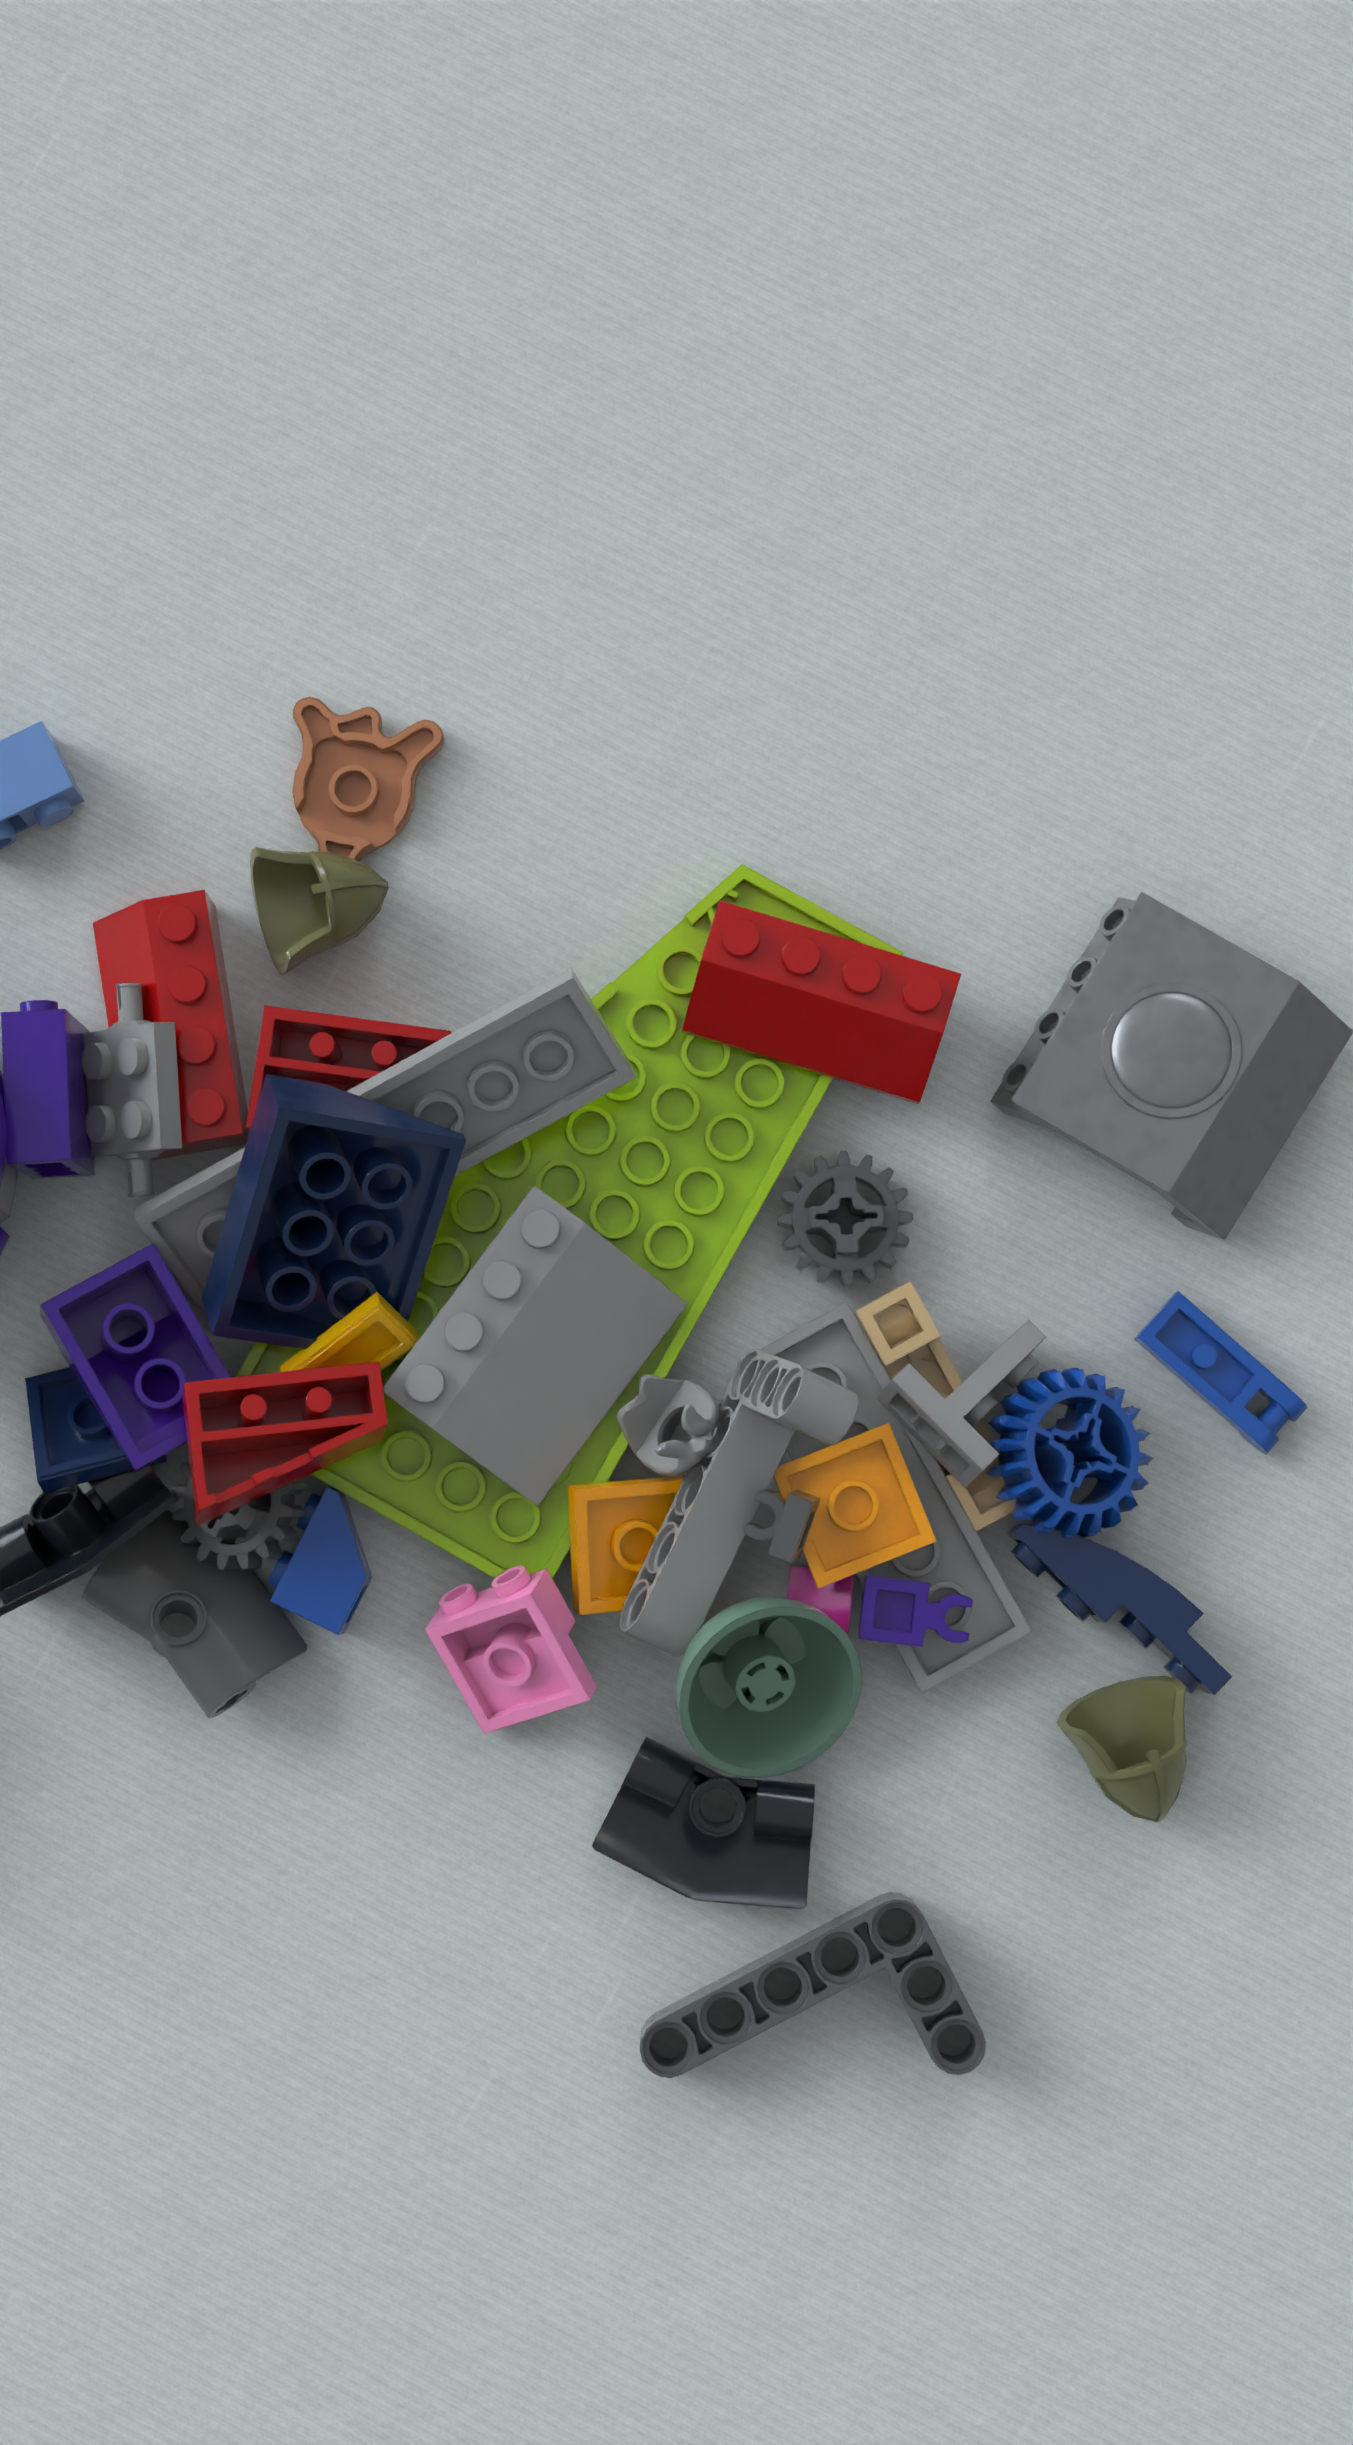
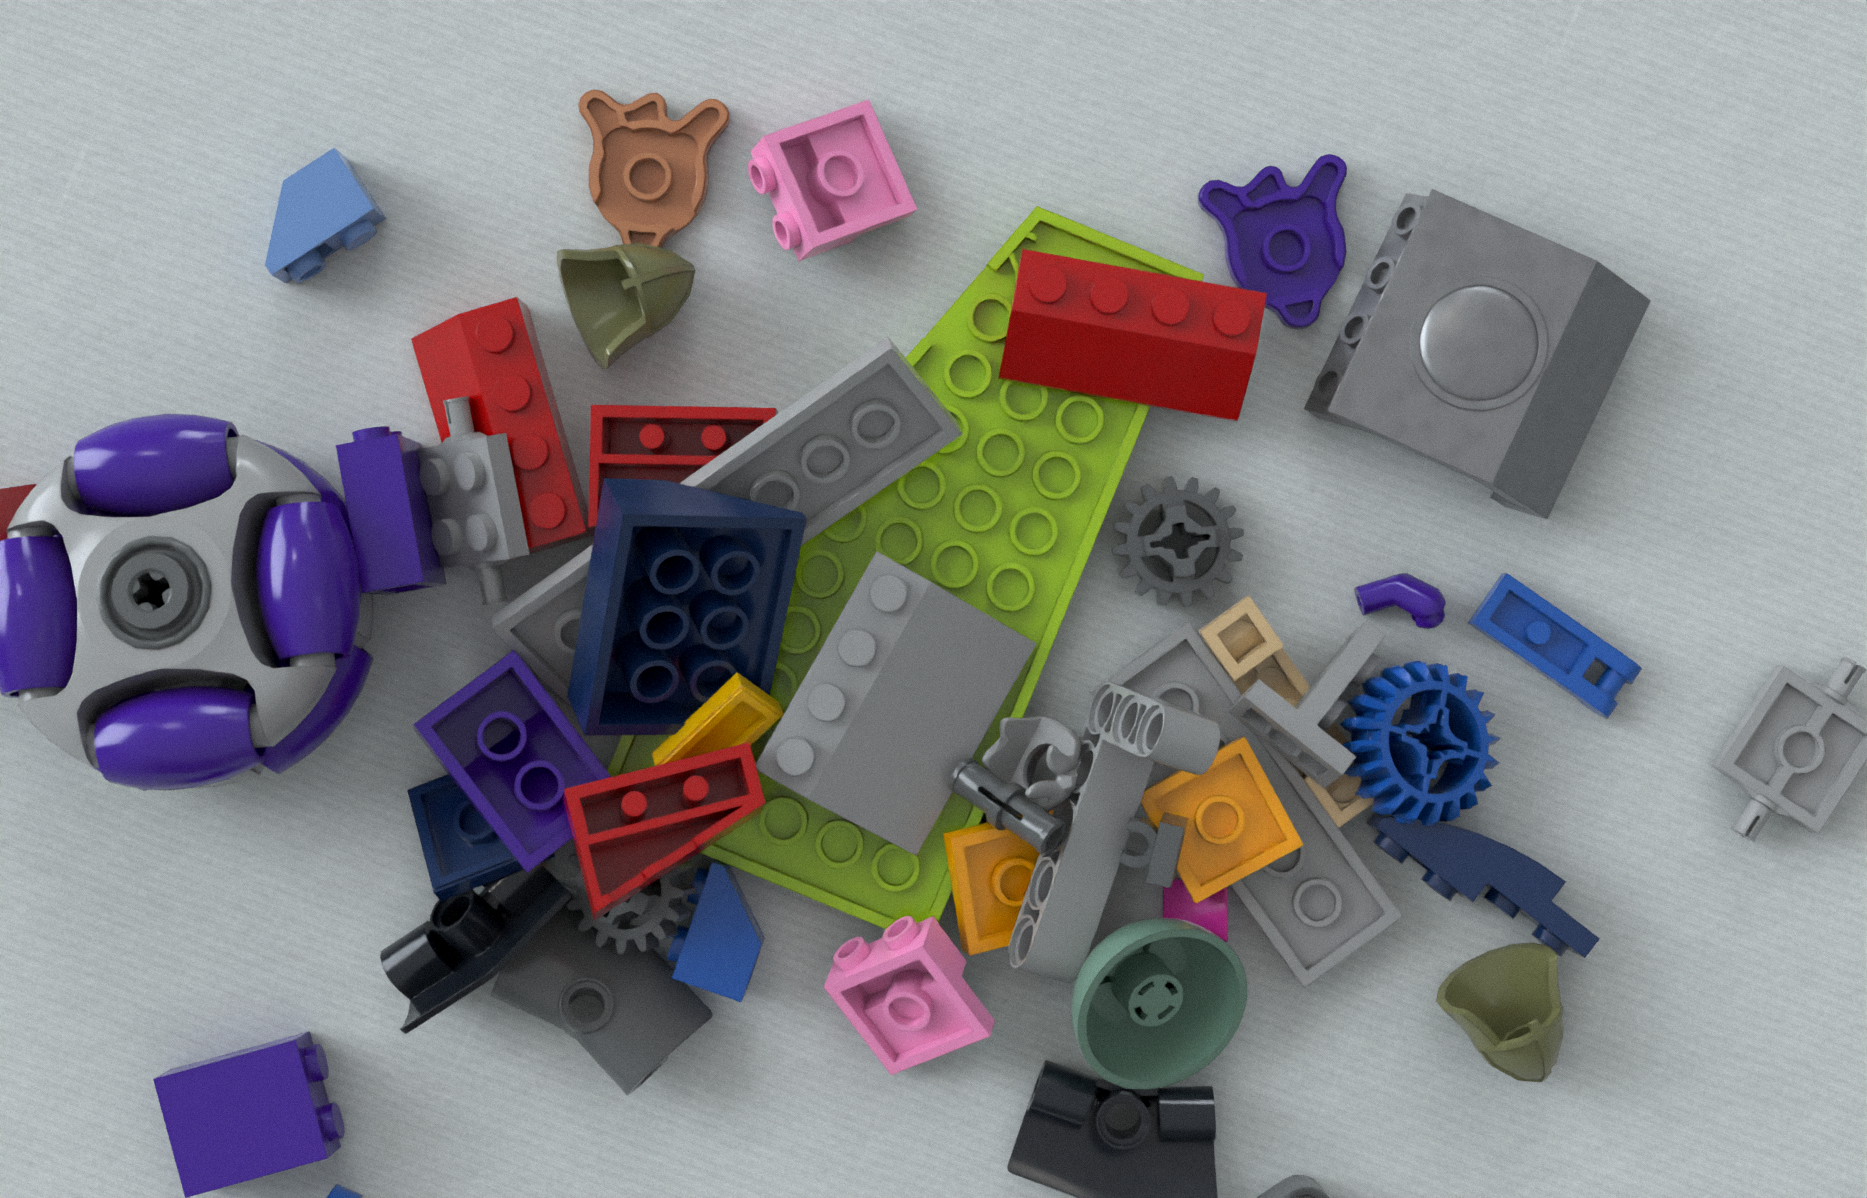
camera: 15 degrees left, 5 degrees up
(536, 814) = (830, 180): none -> bright pink plate
(661, 1487) = (1036, 826): none -> dark grey pin
(900, 1612) = (1276, 915): dark purple plate -> none
(988, 925) = (1283, 236): none -> dark purple tile
(1074, 1300) = (1408, 593): none -> dark purple arm

